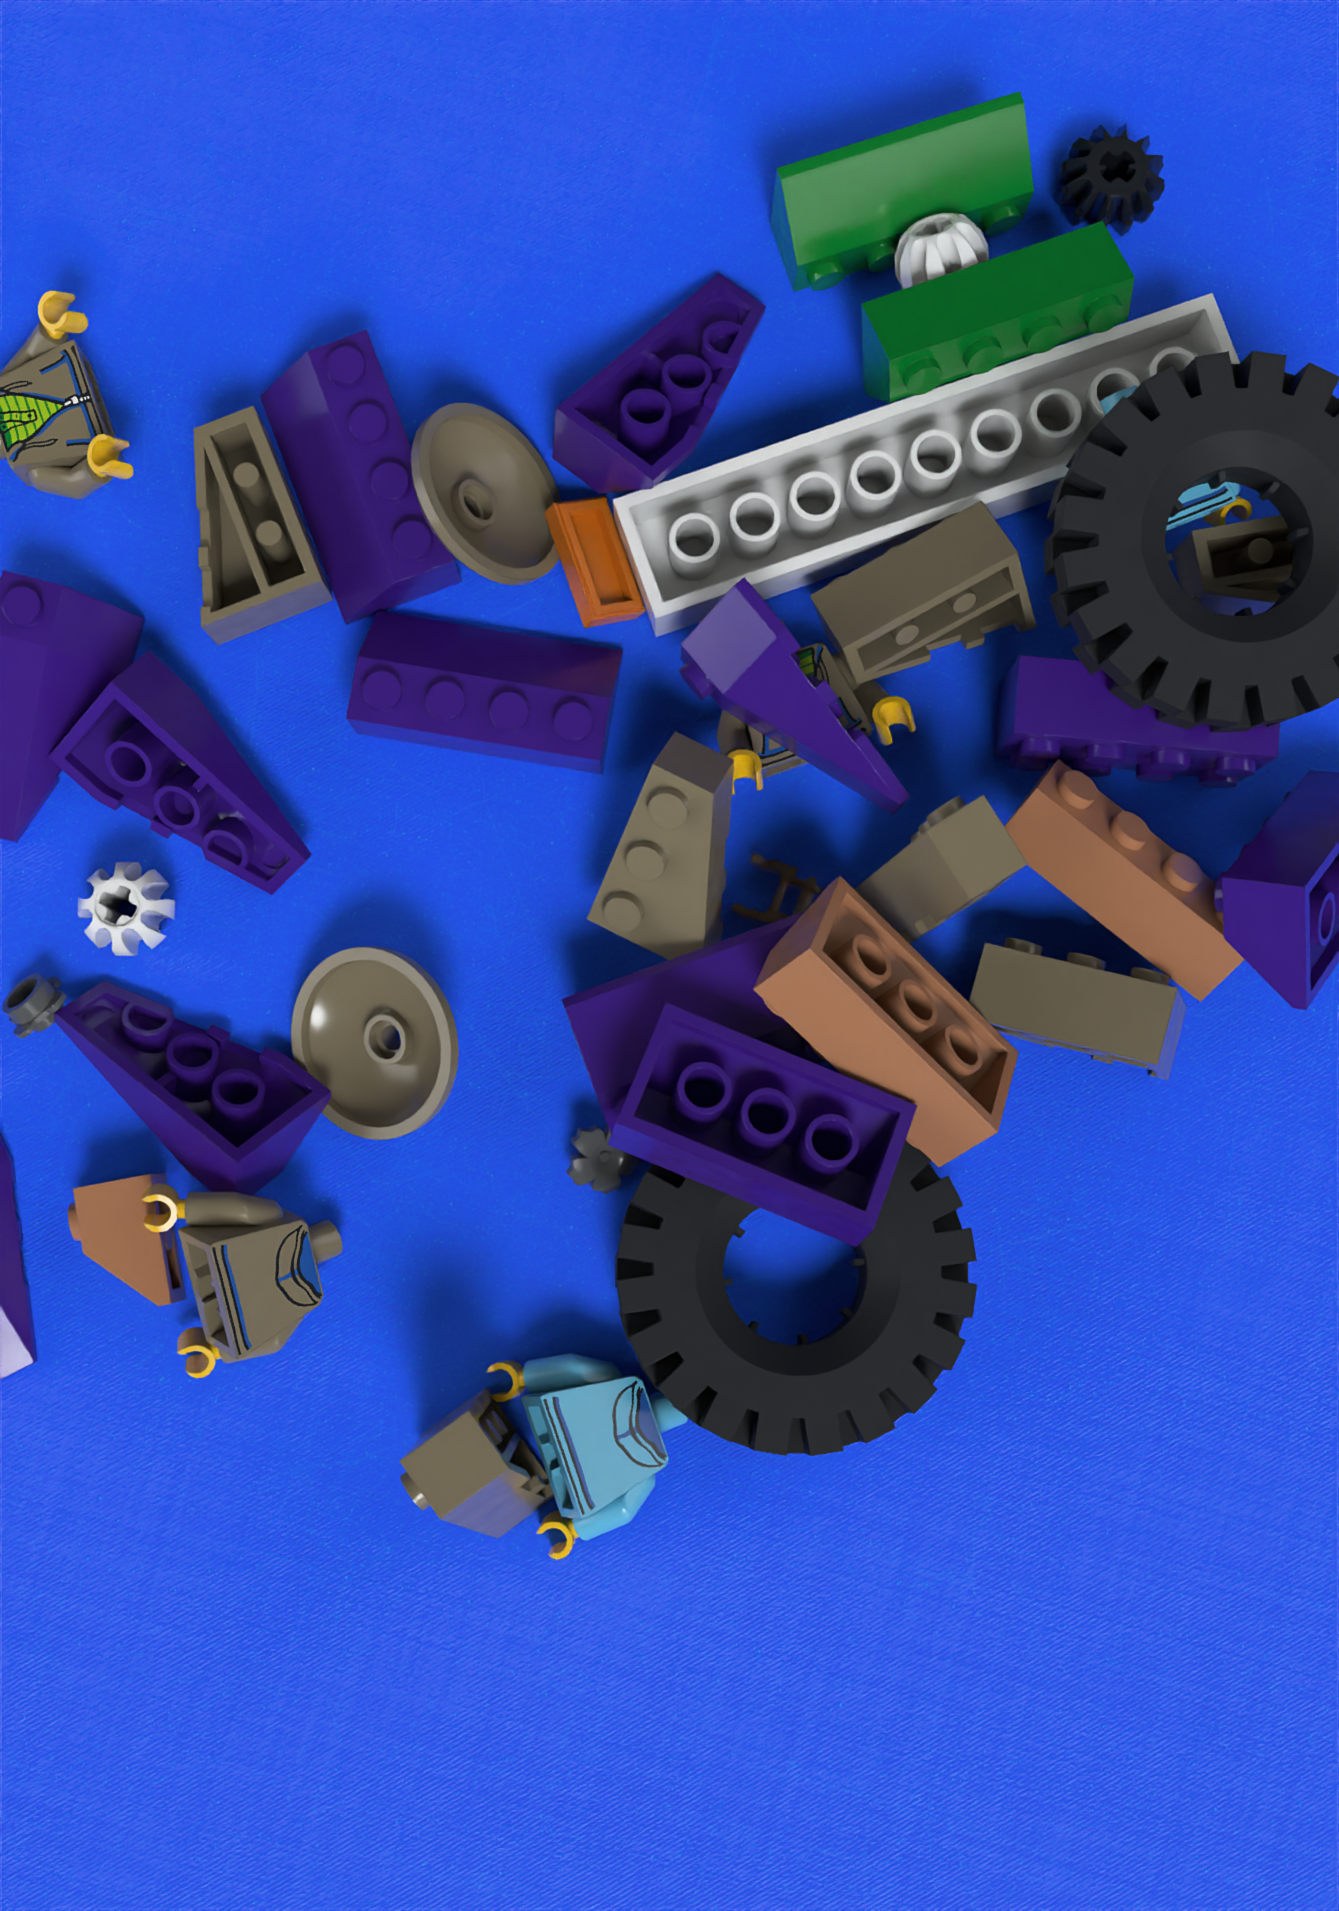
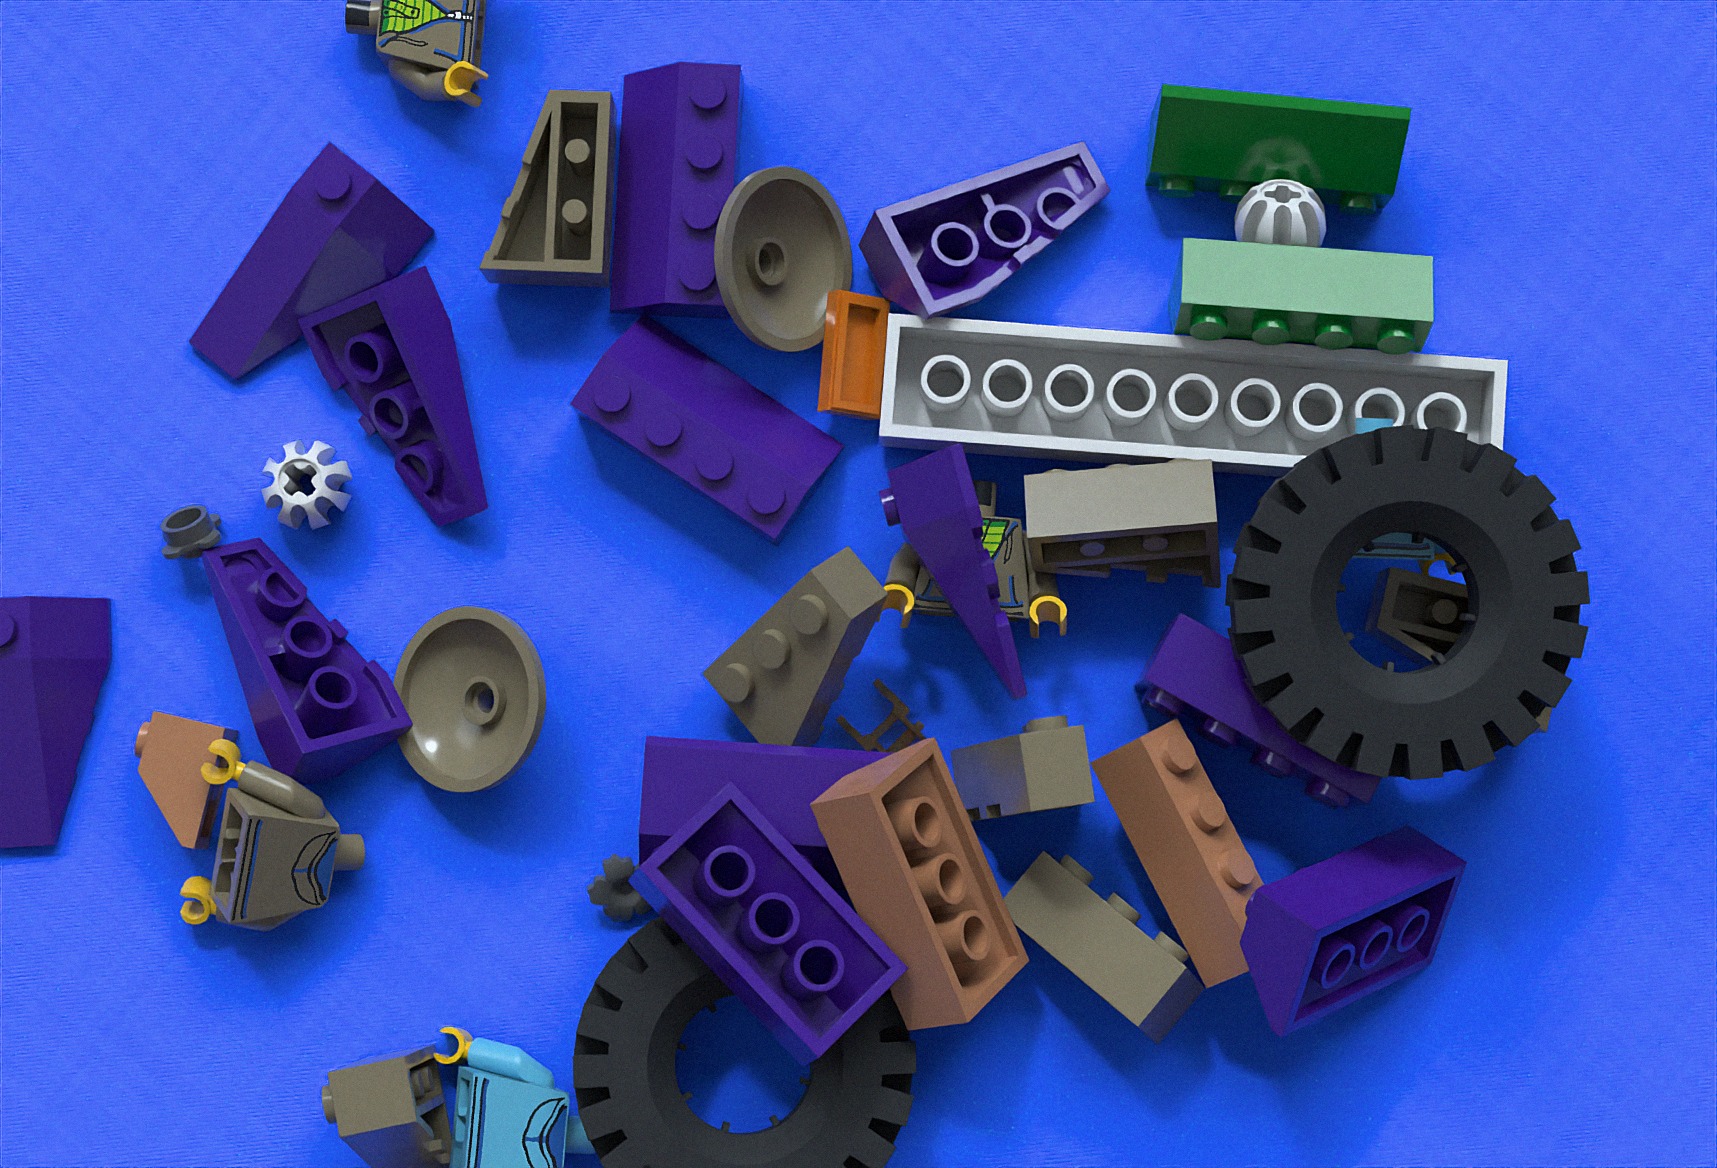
camera: 30 degrees right, 0 degrees up
(1105, 158) = (1477, 192): black gear -> none

